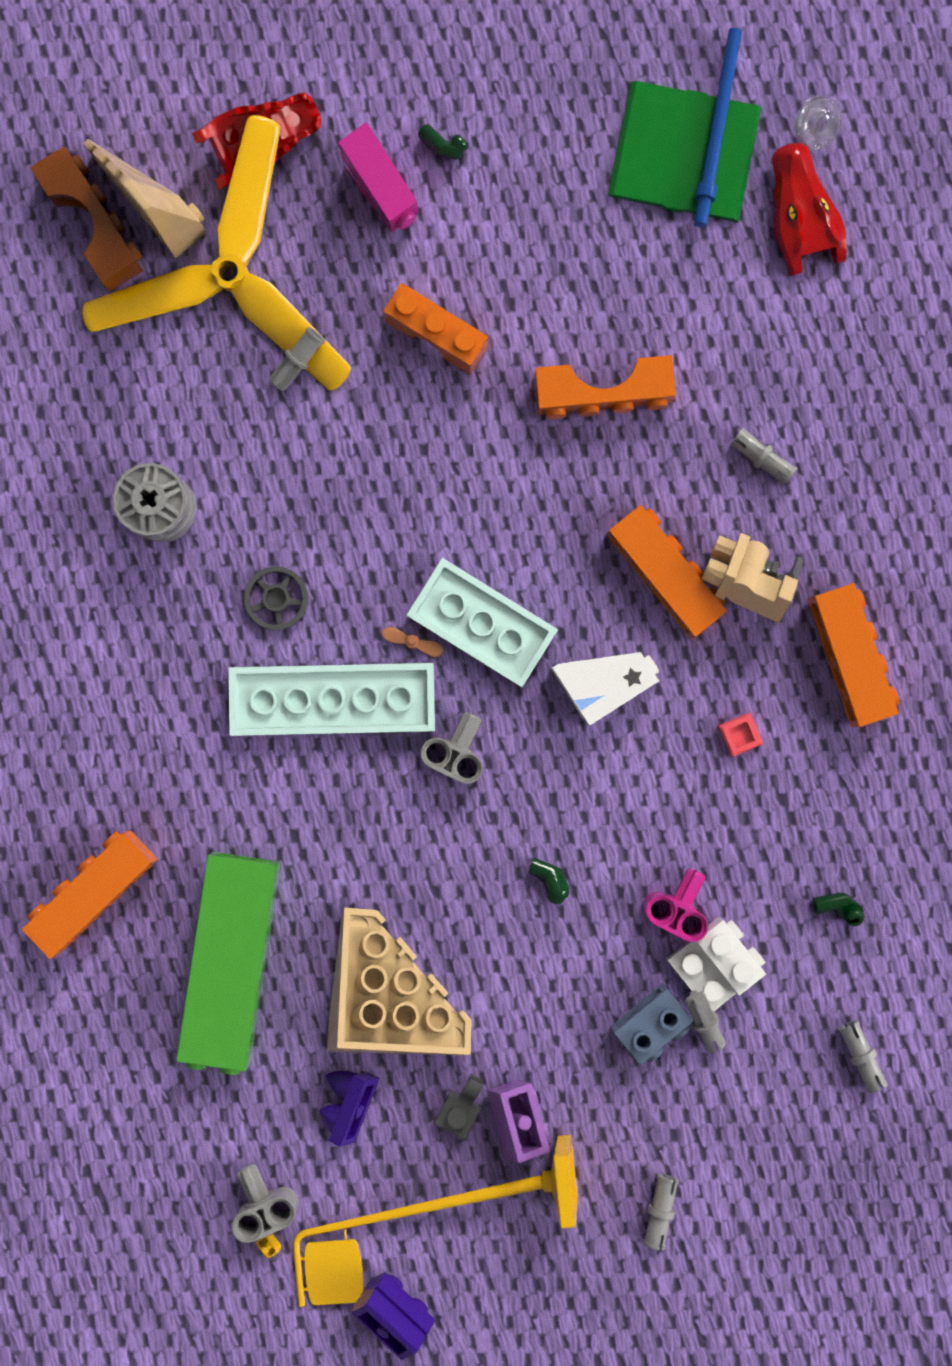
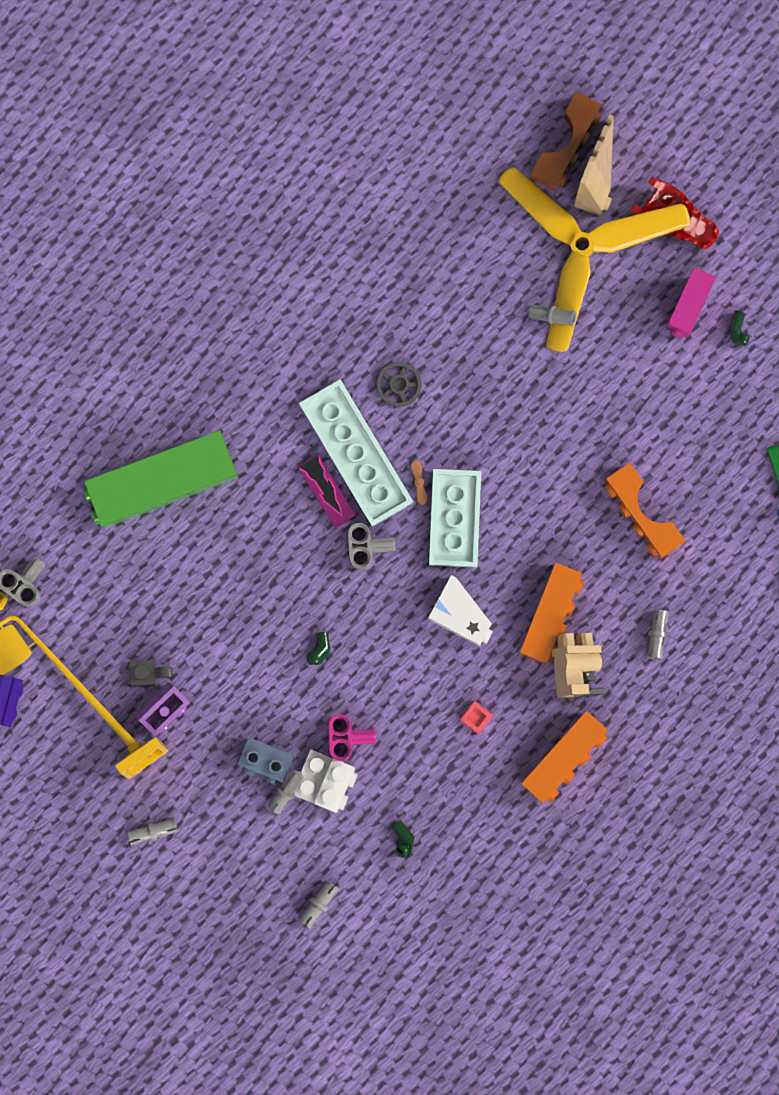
camera: 65 degrees right, 5 degrees down
(89, 894) = (156, 373): orange brick -> none
(174, 500) = (417, 293): light grey wheel -> none
(346, 1119) = (122, 603): dark purple tile -> none
(359, 762) = (326, 491): none -> tile
(385, 999) = (189, 589): tan slope -> none
(447, 333) = (620, 388): orange arch -> none

